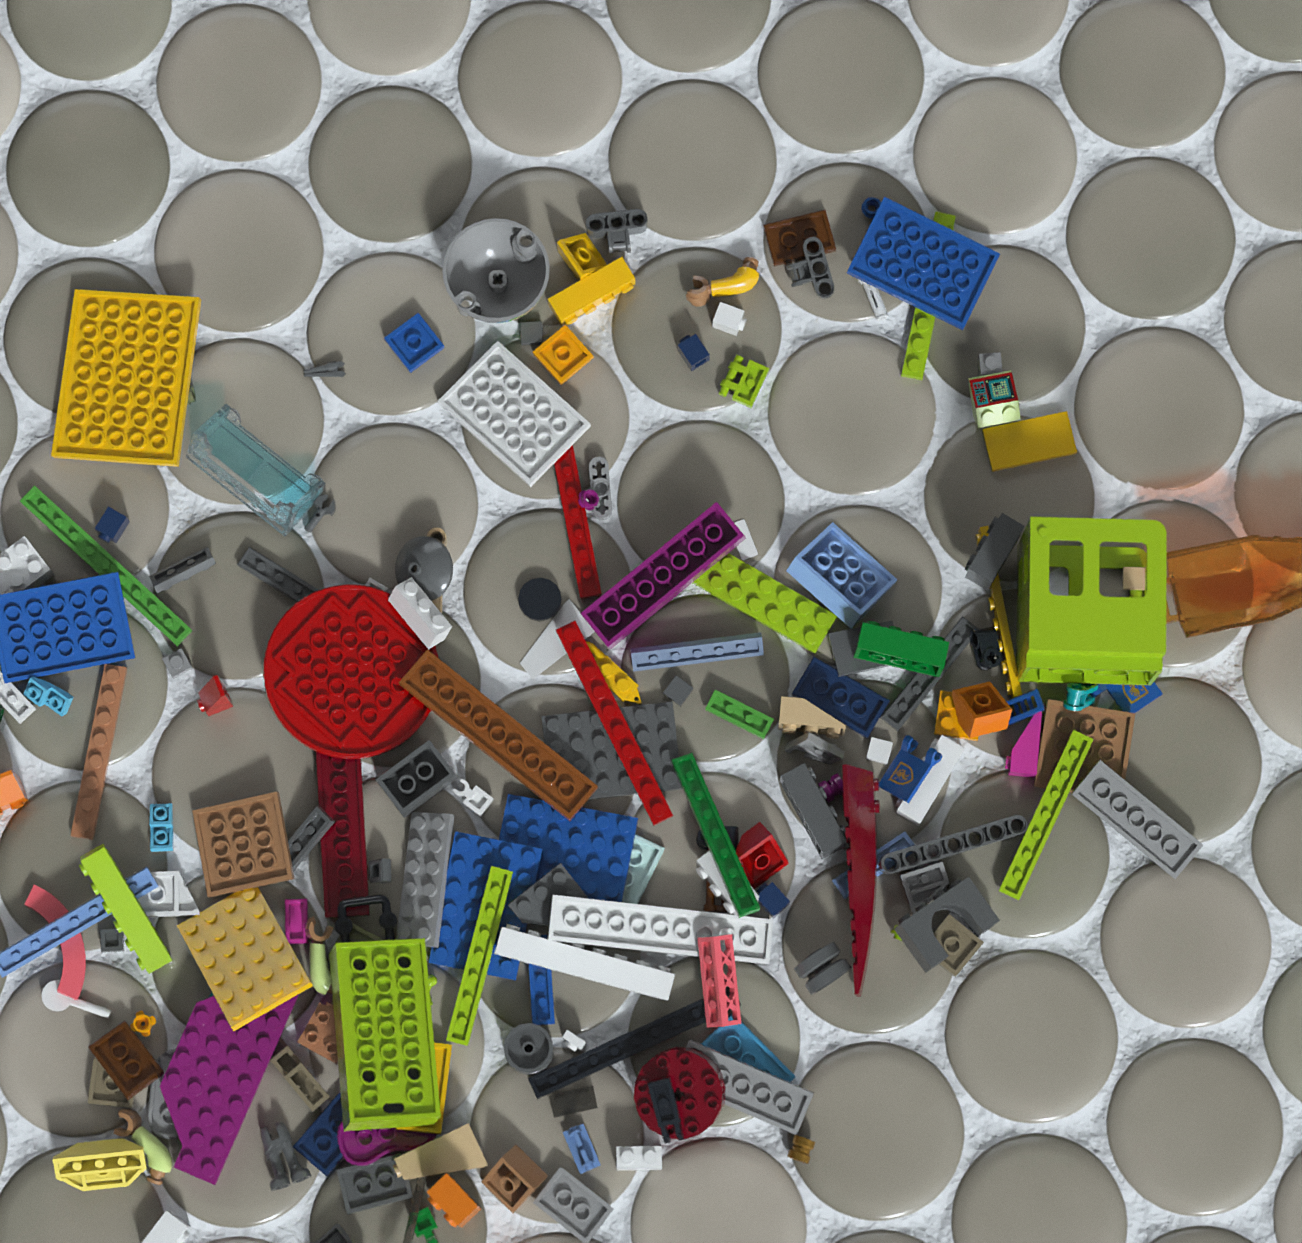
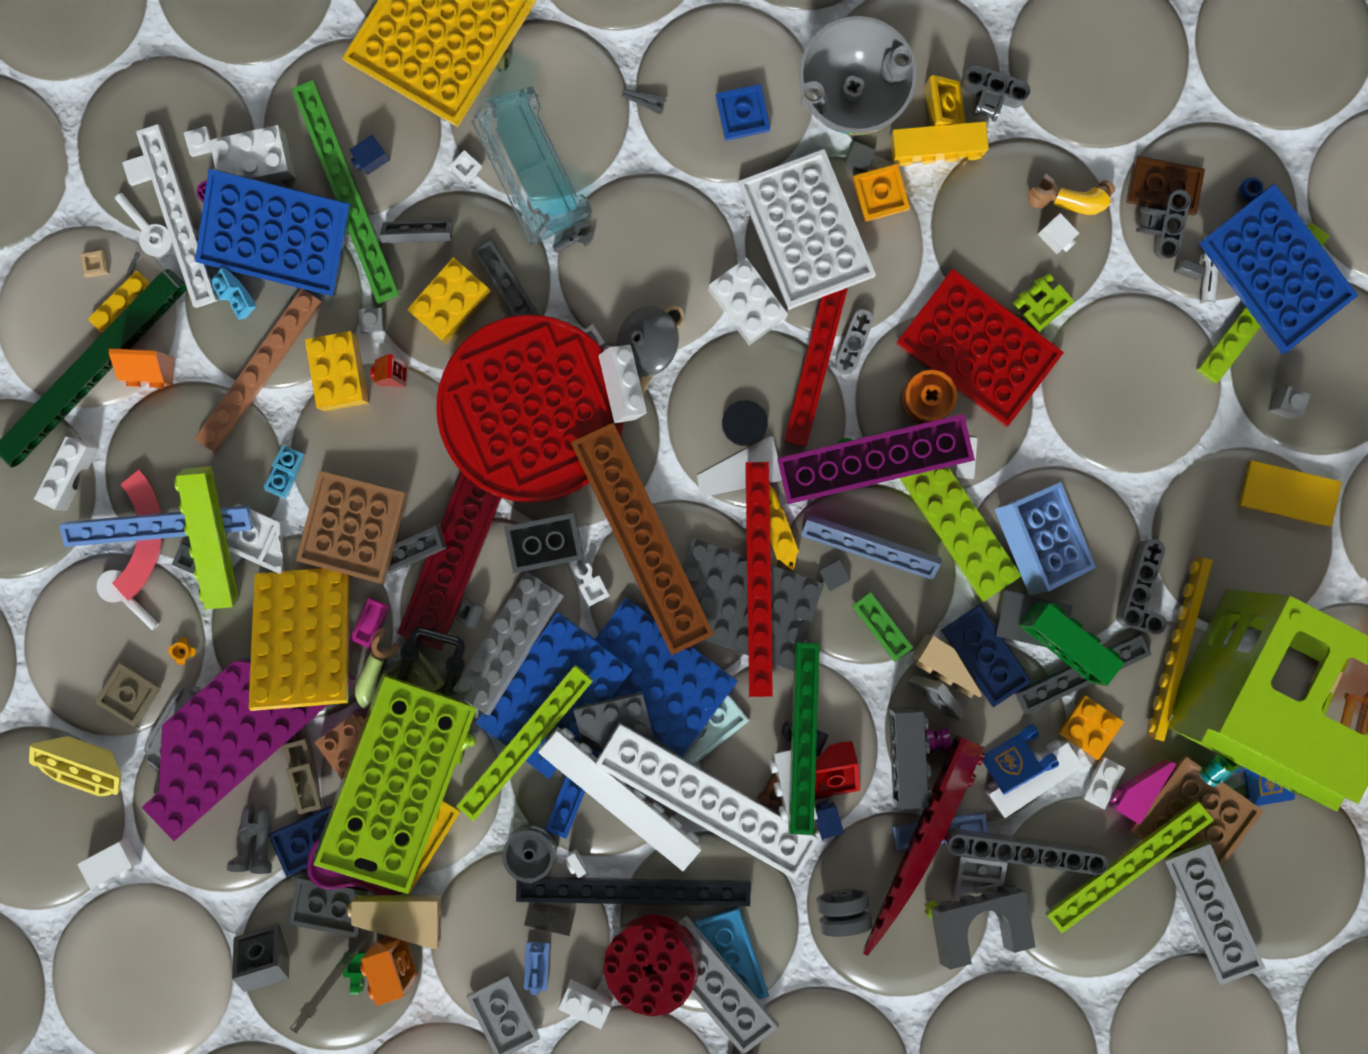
camera: 30 degrees right, 10 degrees up
(126, 1060) = (147, 680): reddish brown tile -> none
(157, 1154) = (137, 776): piece -> none
(168, 719) = (336, 371): none -> yellow brick
(199, 497) = (465, 167): none -> white plate
(238, 614) = (449, 301): none -> yellow brick
(493, 496) = (747, 301): none -> white brick
(514, 1178) = (461, 966): medium nougat slope -> none
(593, 499) = (842, 348): magenta plate -> none
(665, 1107) = (630, 980): black hinge -> none
(681, 491) = (942, 394): none -> orange wheel
(693, 351) = (1008, 250): dark blue brick -> none
(708, 443) = (980, 347): none -> red plate
(715, 981) = (736, 877): coral fence -> none
(853, 296) = (1190, 269): none -> dark grey tile
(879, 750) = (998, 724): white tile -> none
(944, 574) = (1146, 587): none -> dark grey beam
(958, 943) = (984, 945): dark tan plate -> none
(981, 709) = (1118, 737): orange slope -> none
(985, 645) = (1149, 674): black piece -> none
(993, 550) = (1211, 592): dark grey brick -> none
(993, 757) = (1103, 782): none -> white plate
(994, 399) = (1280, 438): slope -> none
(1020, 699) = (1138, 752): blue slope -> none

